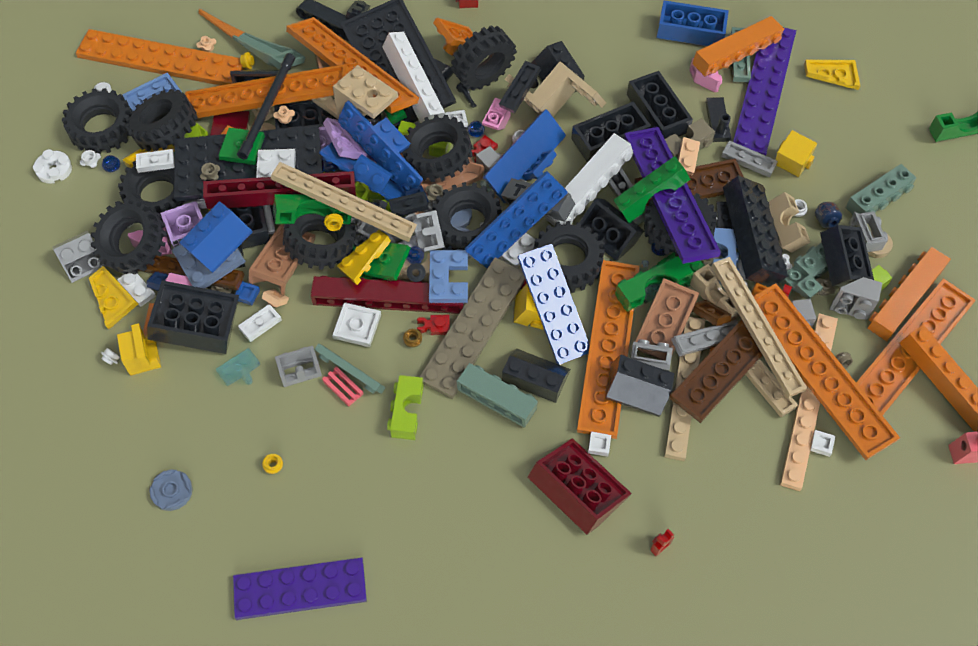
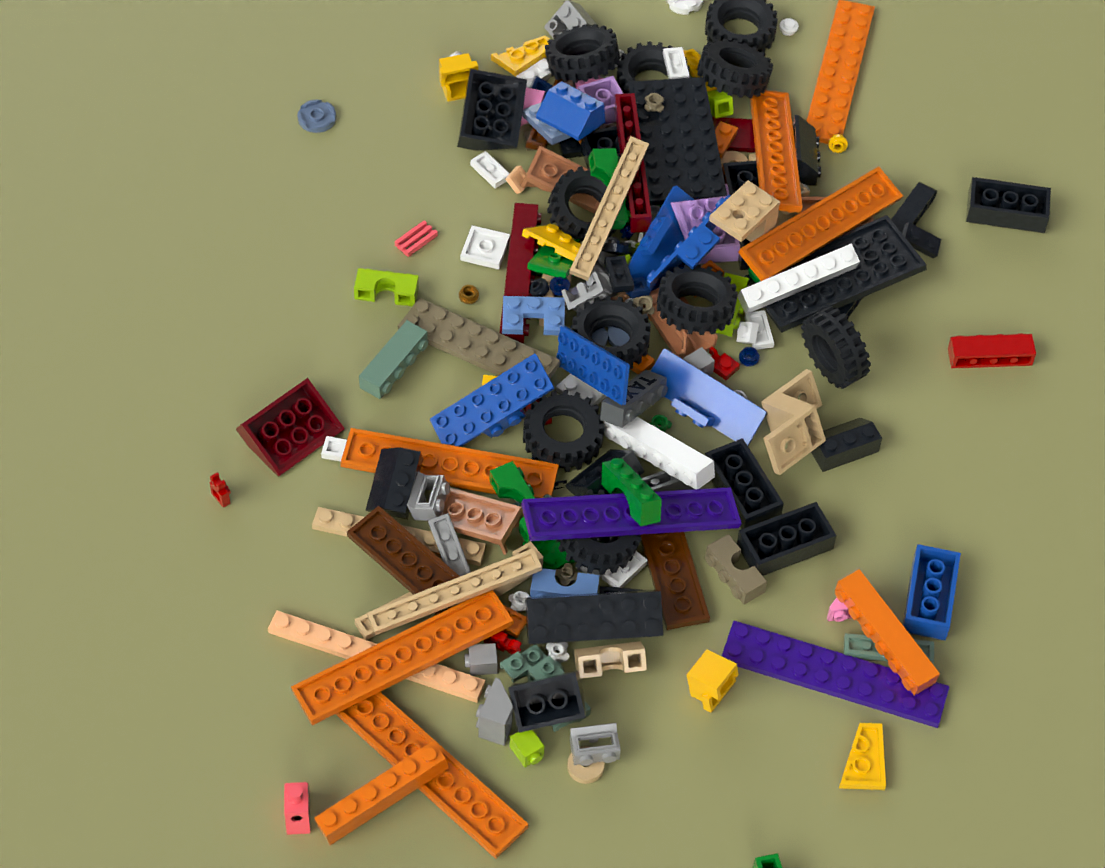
camera: 90 degrees right, 5 degrees down
(89, 158) = (695, 24): white plate -> none
(111, 163) = (688, 41): clear blue plate -> none
(146, 90) = (794, 72): medium blue plate -> none
(206, 44) = (862, 108): light nougat plate -> none
(233, 142) = (690, 127): green plate -> none
(238, 368) = (441, 156): clear light blue plate -> none
(247, 144) = (804, 160): black piece -> none
(247, 293) = (524, 157): blue plate -> none
(267, 51) = (856, 156): sand green plate -> none
(268, 460) = (335, 186): yellow plate -> none
(269, 160) = (664, 157): white plate -> none
(284, 115) = (742, 166): light nougat plate -> none
(294, 359) = (435, 187): light grey window -> none
(299, 588) = (211, 212): dark purple plate -> none
(333, 222) = (591, 206): yellow plate -> none
(371, 384) = (432, 241): sand green plate -> none
(437, 324) = (485, 314): red plate -> none
(454, 34) = (882, 333): orange plate -> none
(461, 88) = (796, 353): black piece -> none
(496, 116) = (762, 372): bright pink slope -> none
(523, 81) = (790, 379): black piece -> none
(535, 375) = (419, 396): black slope -> none
(688, 154) = (704, 558): light nougat plate -> none
(711, 313) = (482, 559): reddish brown plate -> none
(718, 119) = (777, 612): black piece -> none
(749, 158) = (713, 633): light grey plate -> none
(802, 207) = (638, 676): white plate -> none
(822, 443) = (318, 656): white plate -> none
(828, 214) = (624, 710): dark blue head -> none
(845, 359) = (421, 695): dark tan plate -> none
(882, 191) = (660, 778): sand green brick -> none
(908, 294) = (509, 782): orange brick -> none

